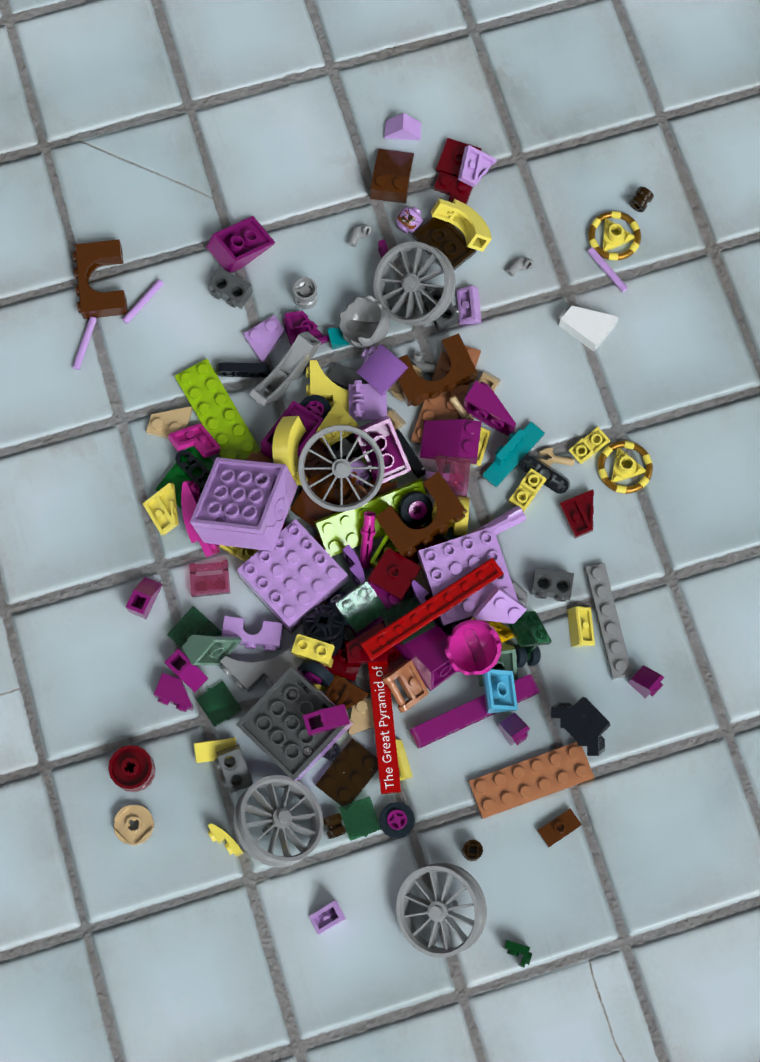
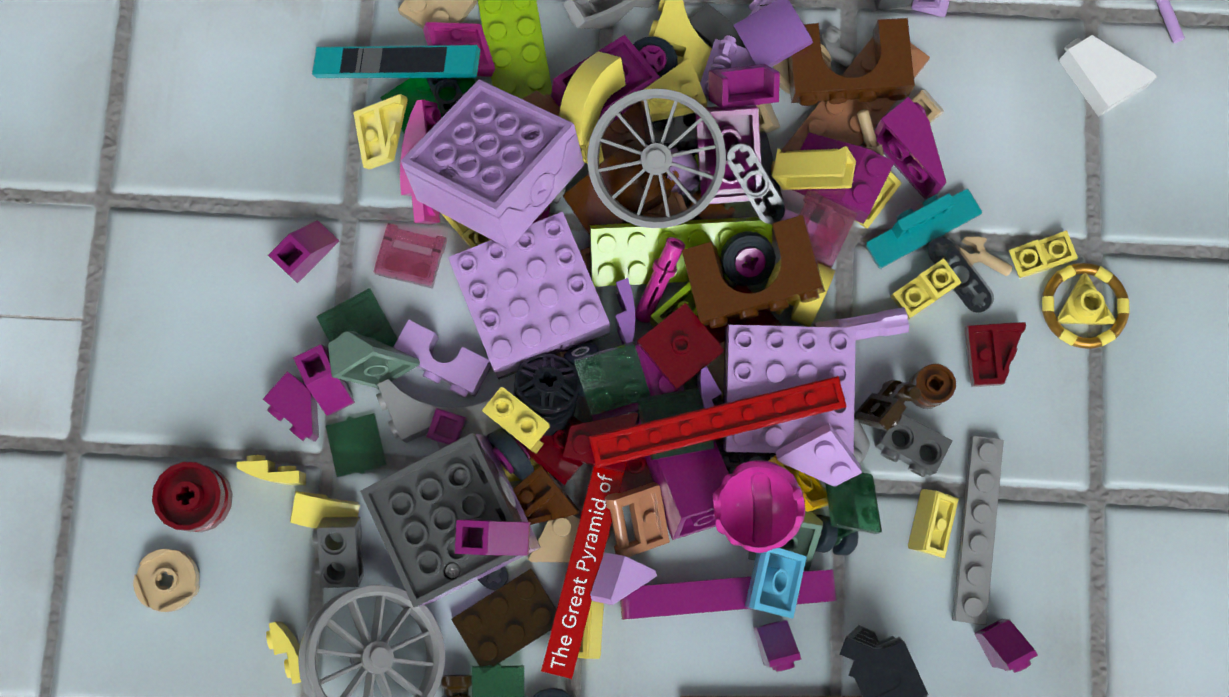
camera: 20 degrees right, 5 degrees up
(159, 464) = (397, 62): none -> tile
(166, 737) = (264, 469): none -> light yellow slope
(271, 671) = (446, 427): none -> magenta tile
(376, 407) = (744, 86): none -> magenta panel
(407, 722) = (618, 578): none -> lavender slope
(411, 475) = (759, 206): none -> beam
(435, 442) = (814, 169): none -> light yellow window
(528, 567) = (886, 407): none -> dark brown plate
(550, 546) = (936, 385): none -> reddish brown wheel

